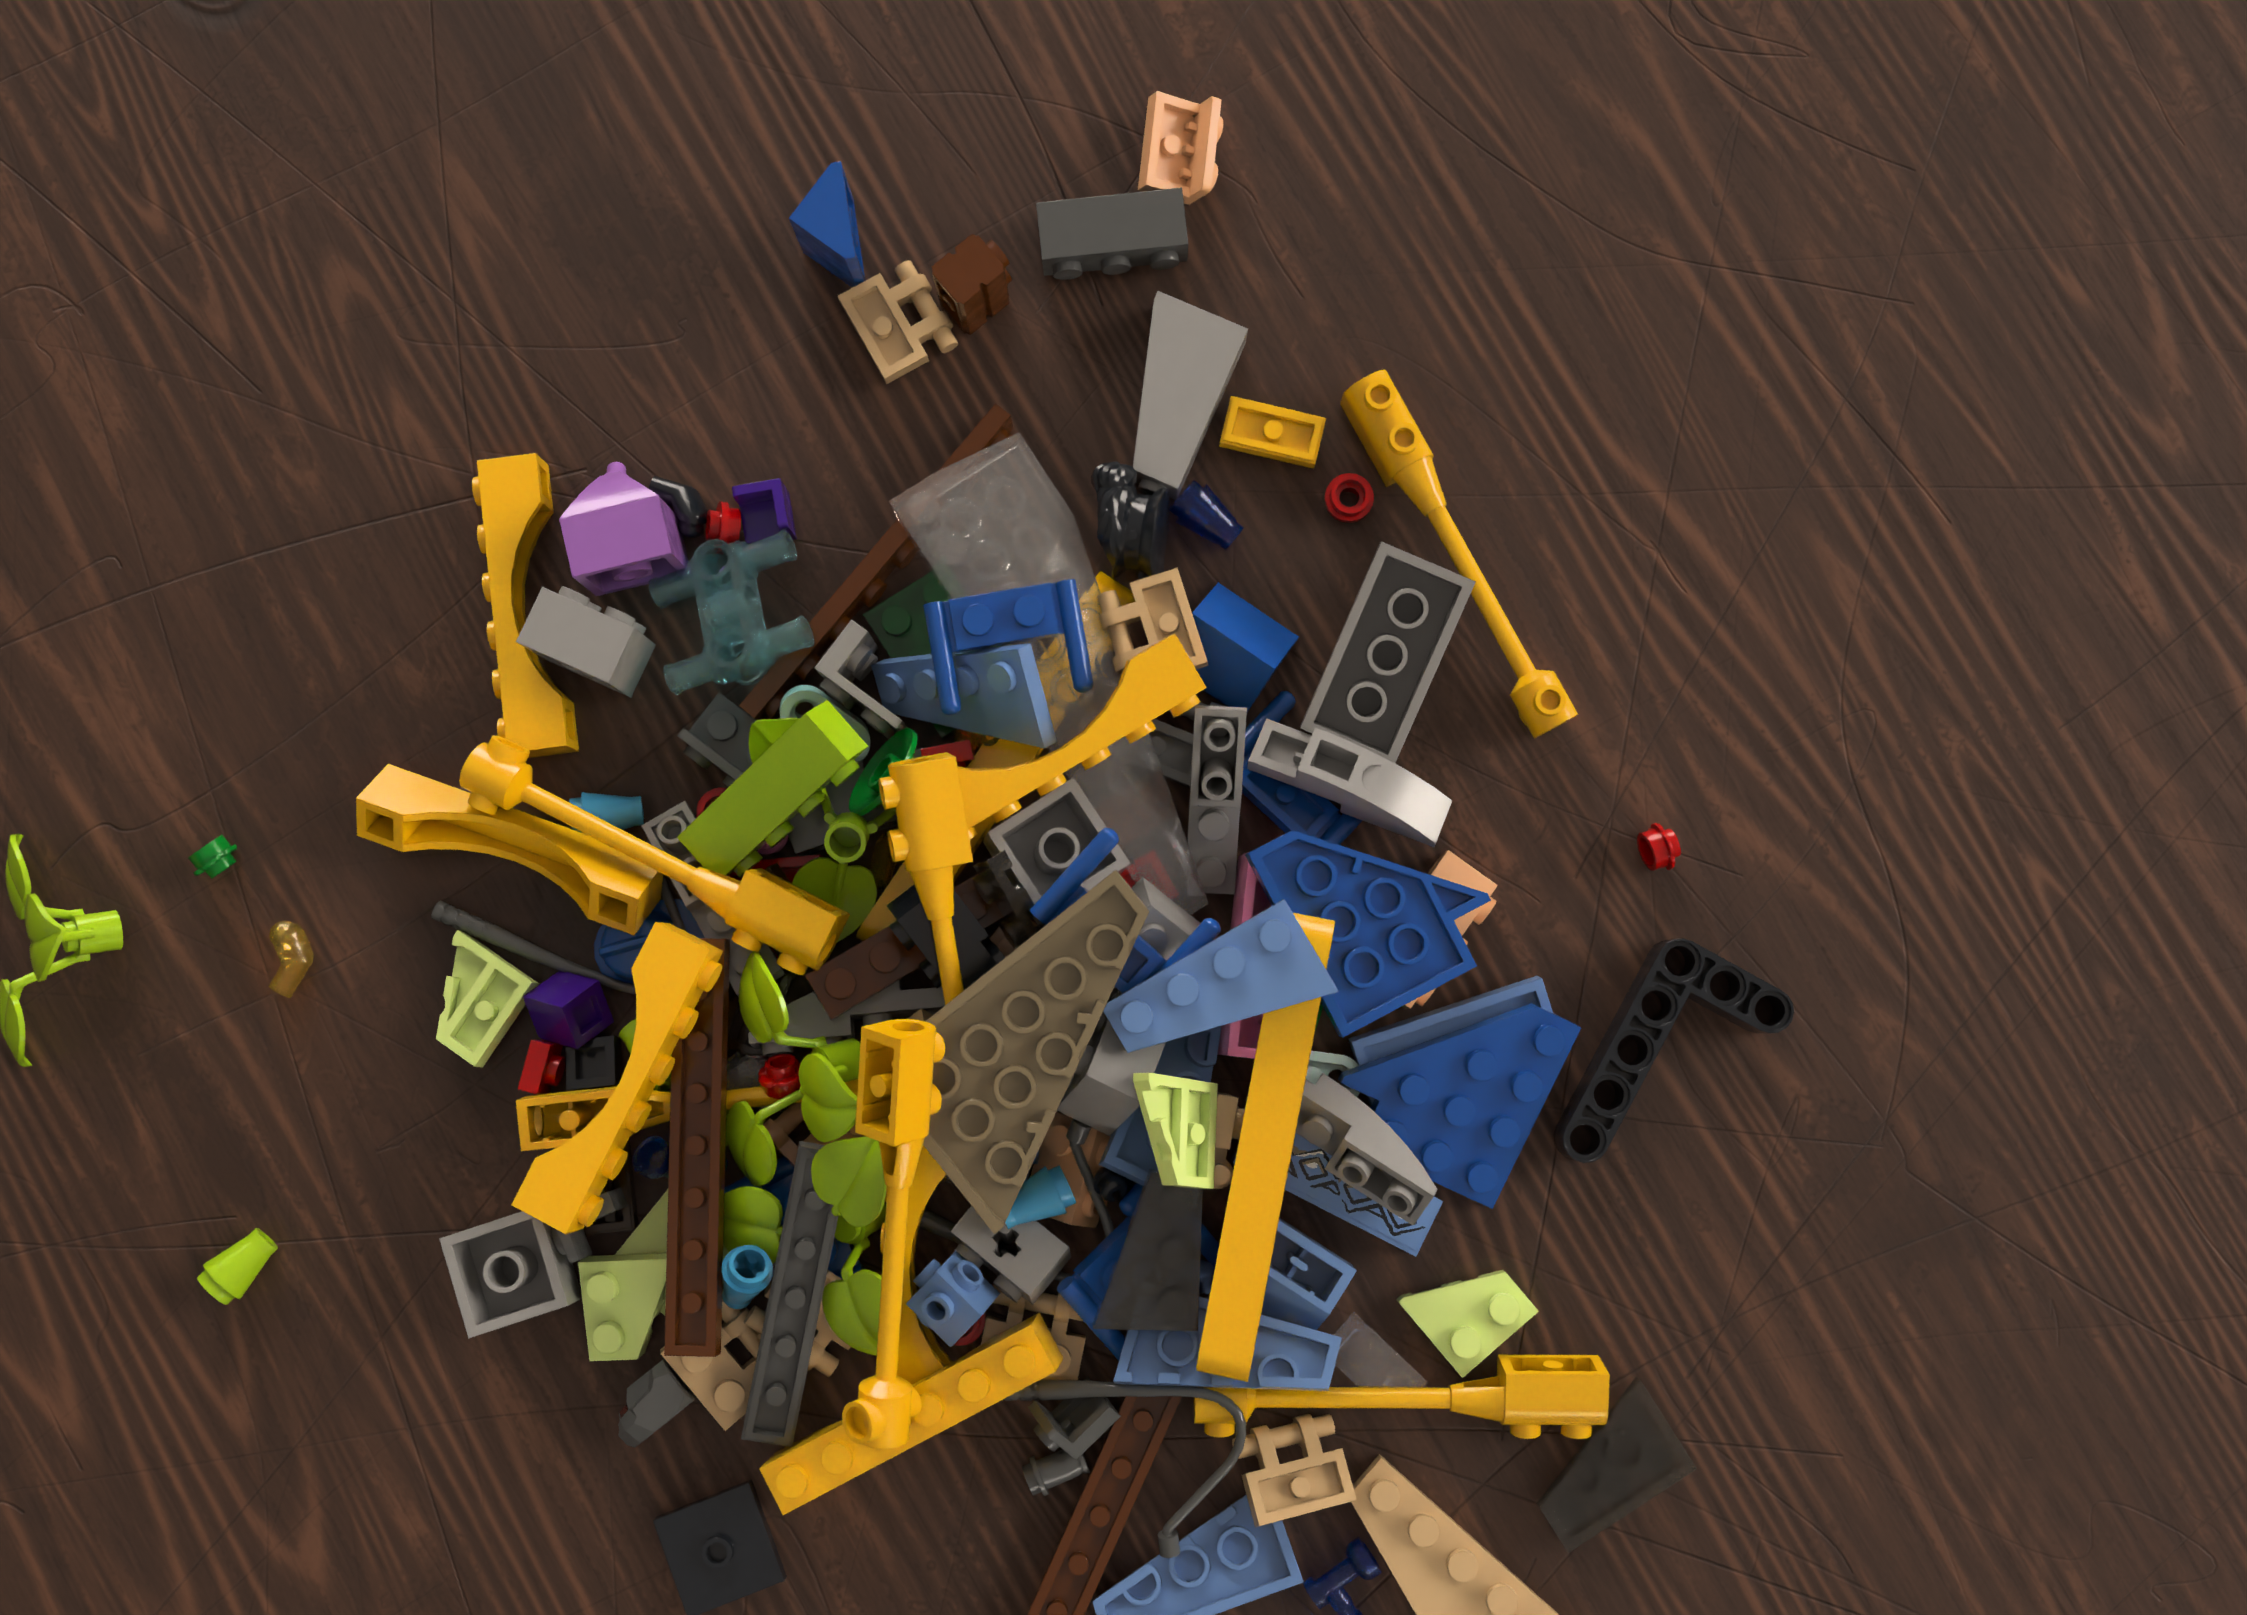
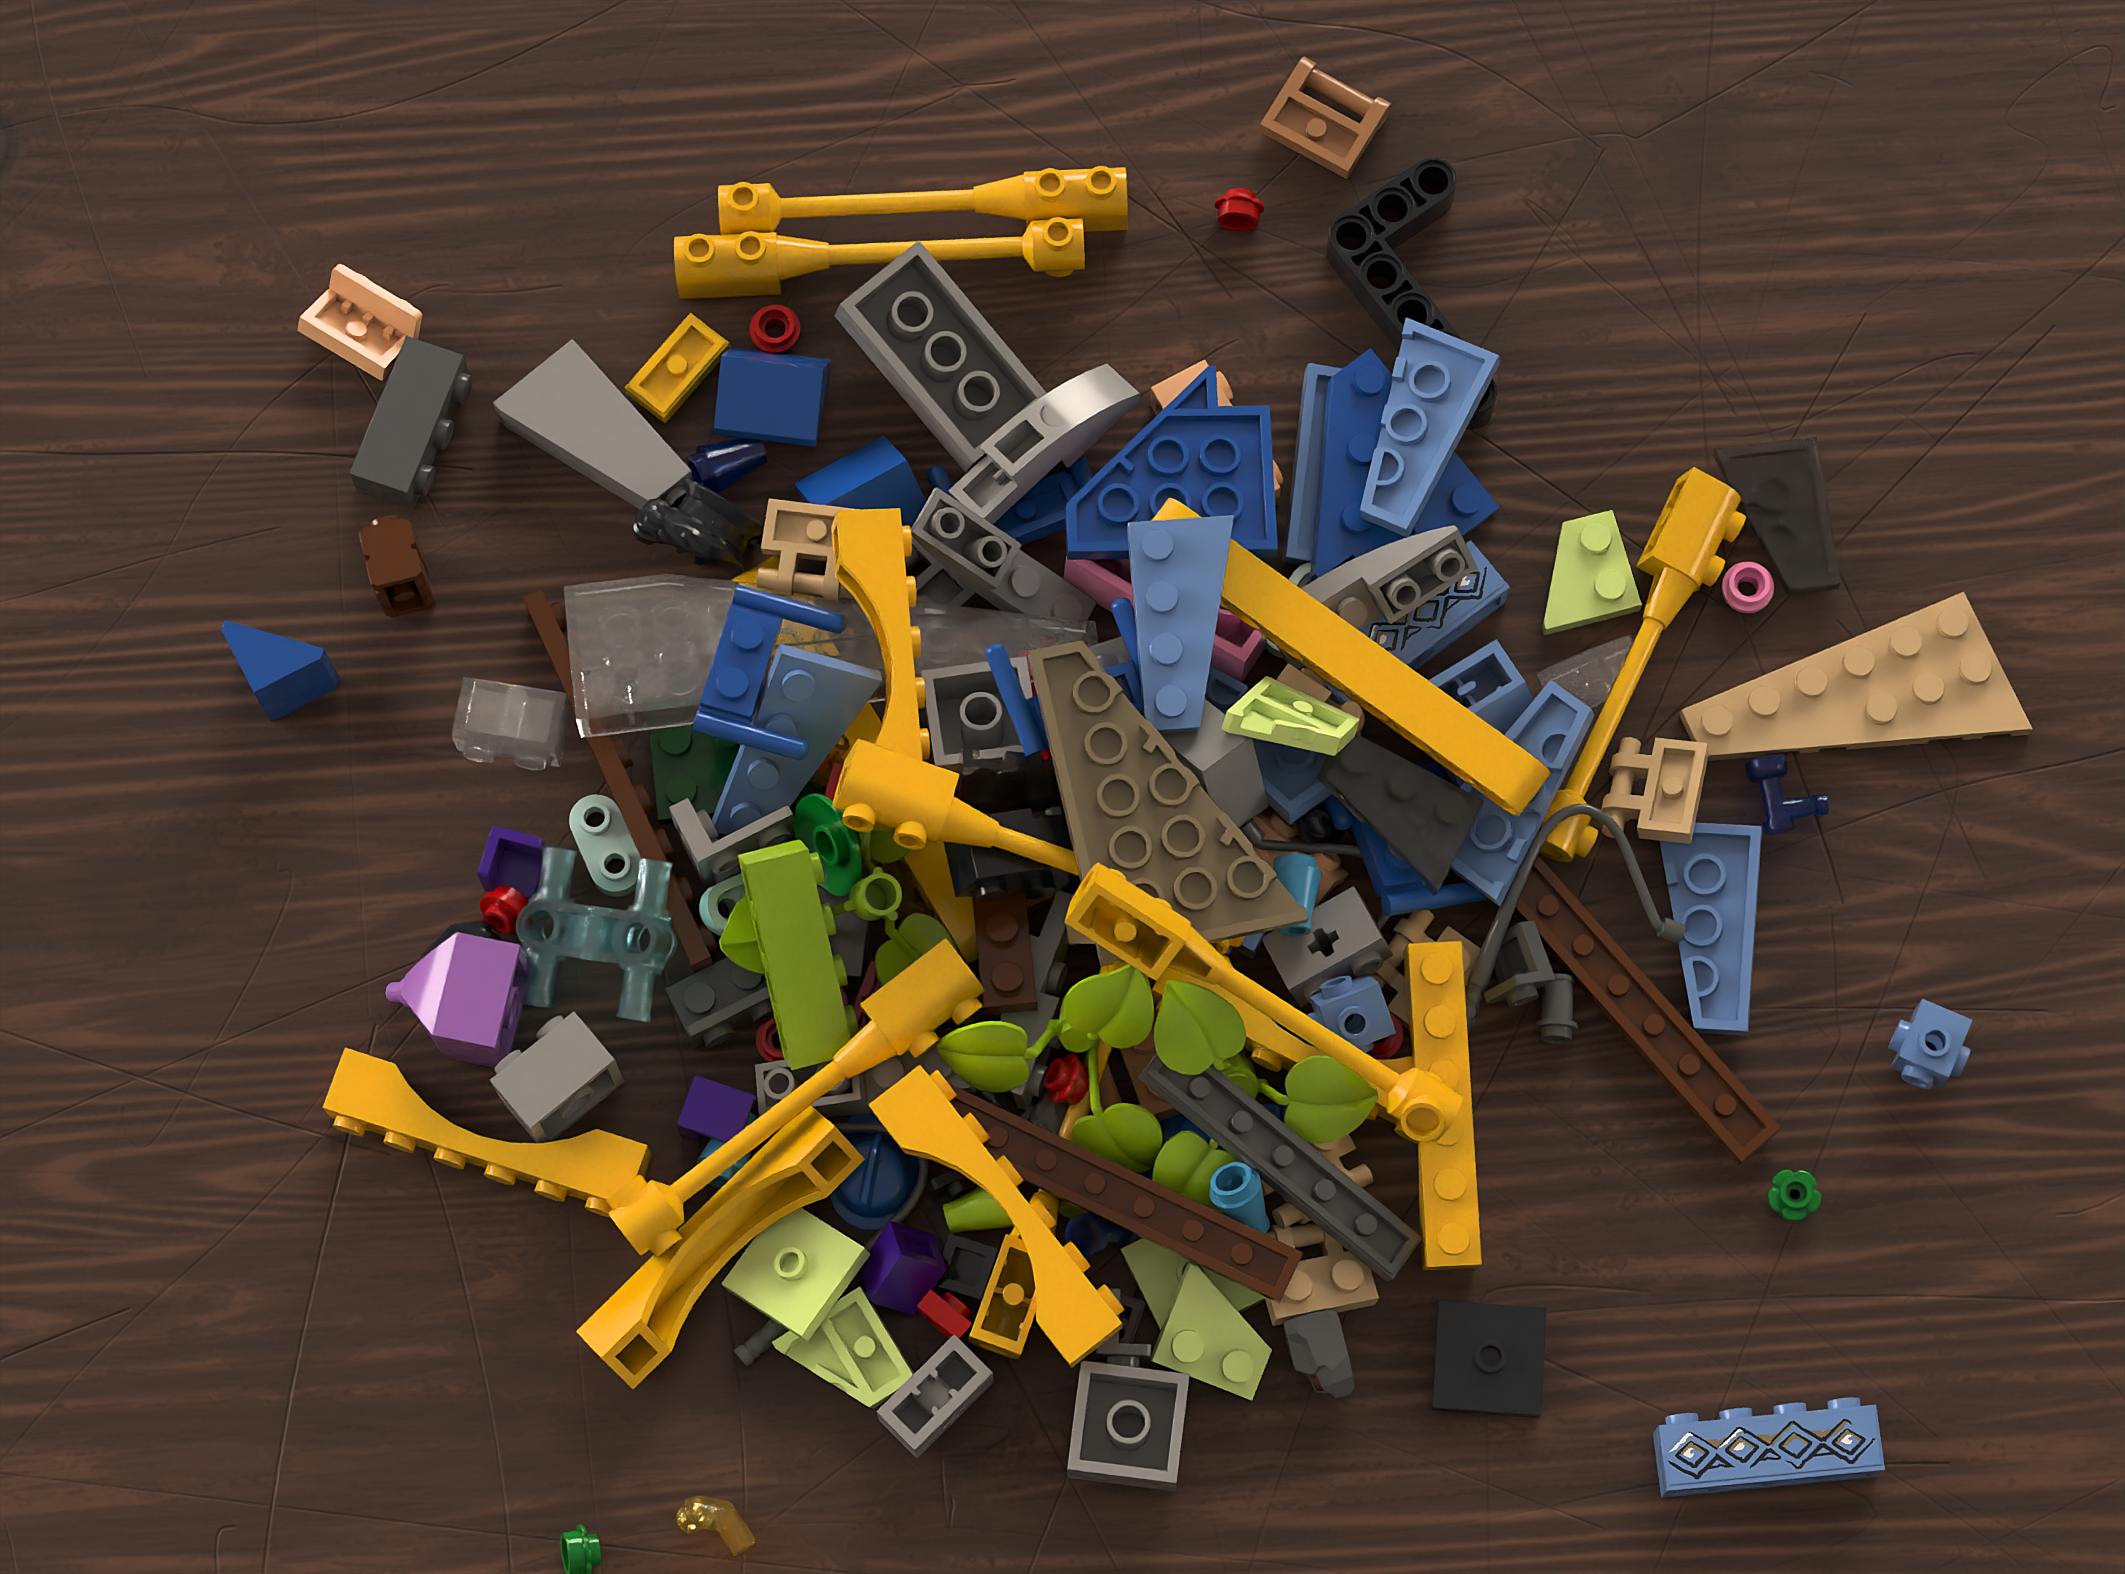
camera: 65 degrees left, 10 degrees down
(462, 1092) = (935, 1396): none -> light grey brick
(522, 923) = (796, 1271): none -> yellowish green plate
(627, 788) = (714, 1111): none -> dark purple panel
(819, 577) = (605, 843): none -> light aqua plate
(884, 328) = (390, 673): tan plate -> none
(886, 446) = (511, 723): none -> clear brick
(1285, 523) = (771, 396): none -> blue slope
(1537, 1476) = (1751, 573): none -> bright pink plate
(1542, 1109) = (1427, 412): none -> medium blue wing
(1601, 704) = (1089, 194): none -> yellow bar
(1770, 877) = (1318, 129): none -> medium nougat plate

